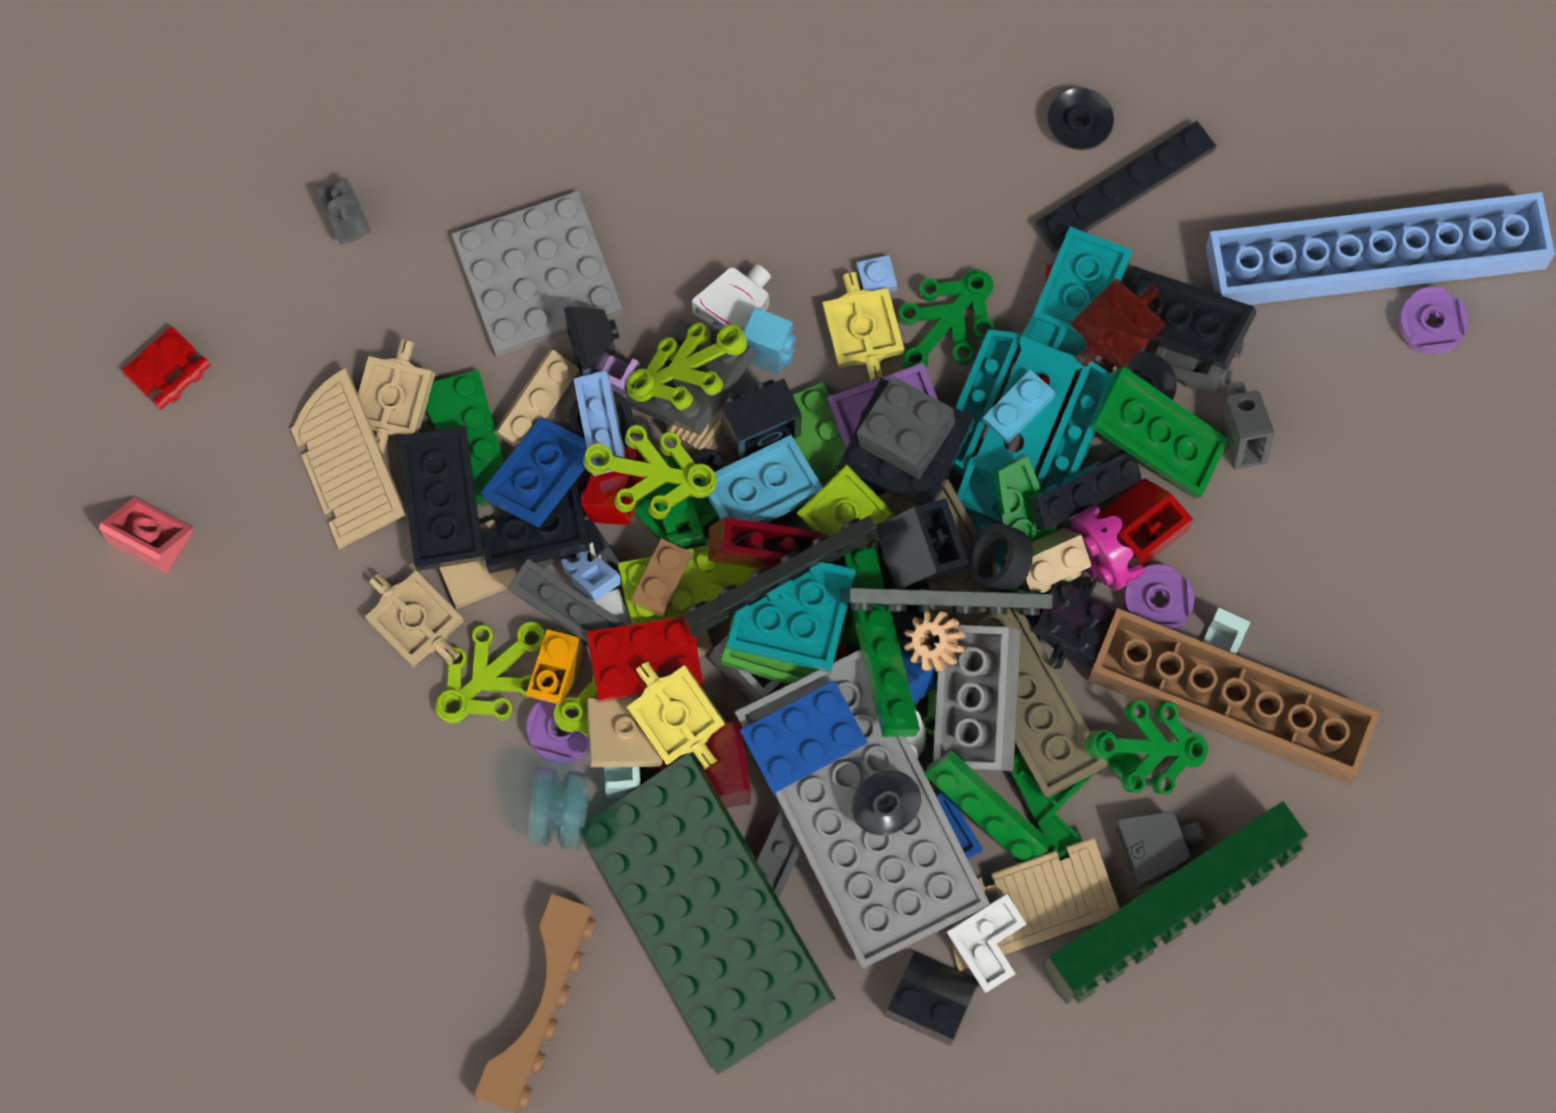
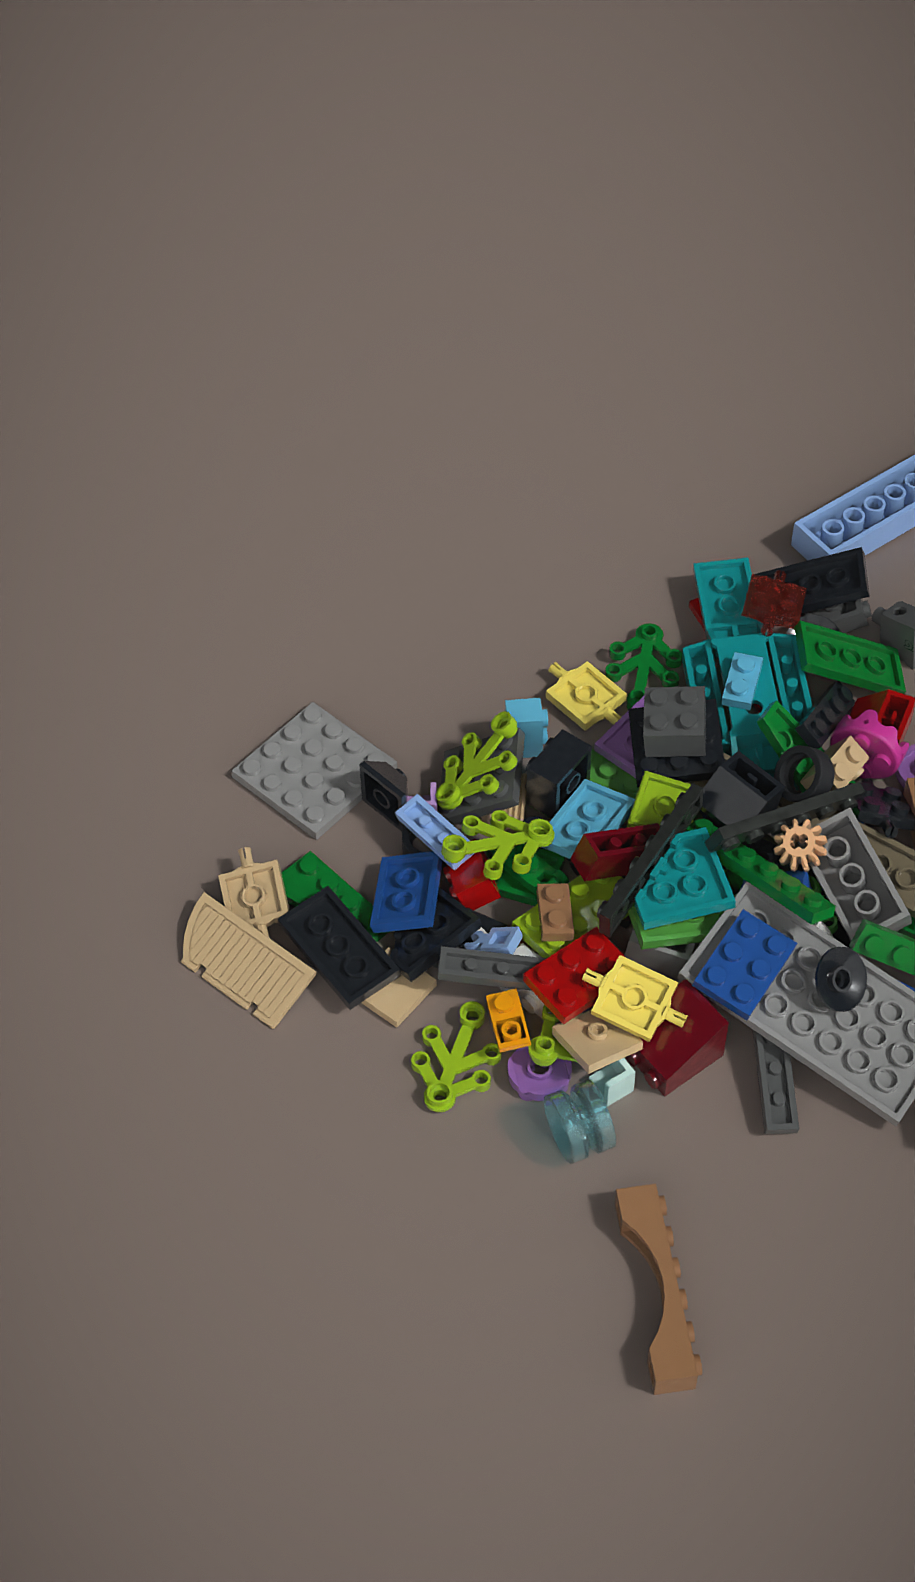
camera: 25 degrees left, 20 degrees down
(146, 533) = (105, 1092): coral slope -> none
(159, 362) = (44, 960): red plate -> none
(343, 211) = (138, 790): dark grey hips -> none
(414, 618) = (368, 1046): tan plate -> none
(537, 397) = (369, 849): tan plate -> none
(706, 913) = (752, 1142): dark green plate -> none
(732, 298) = (475, 715): white torso -> none
(877, 274) = (571, 658): light blue plate -> none
(1085, 106) = (650, 504): black dish -> none
(1126, 185) = (708, 533): black plate -> none

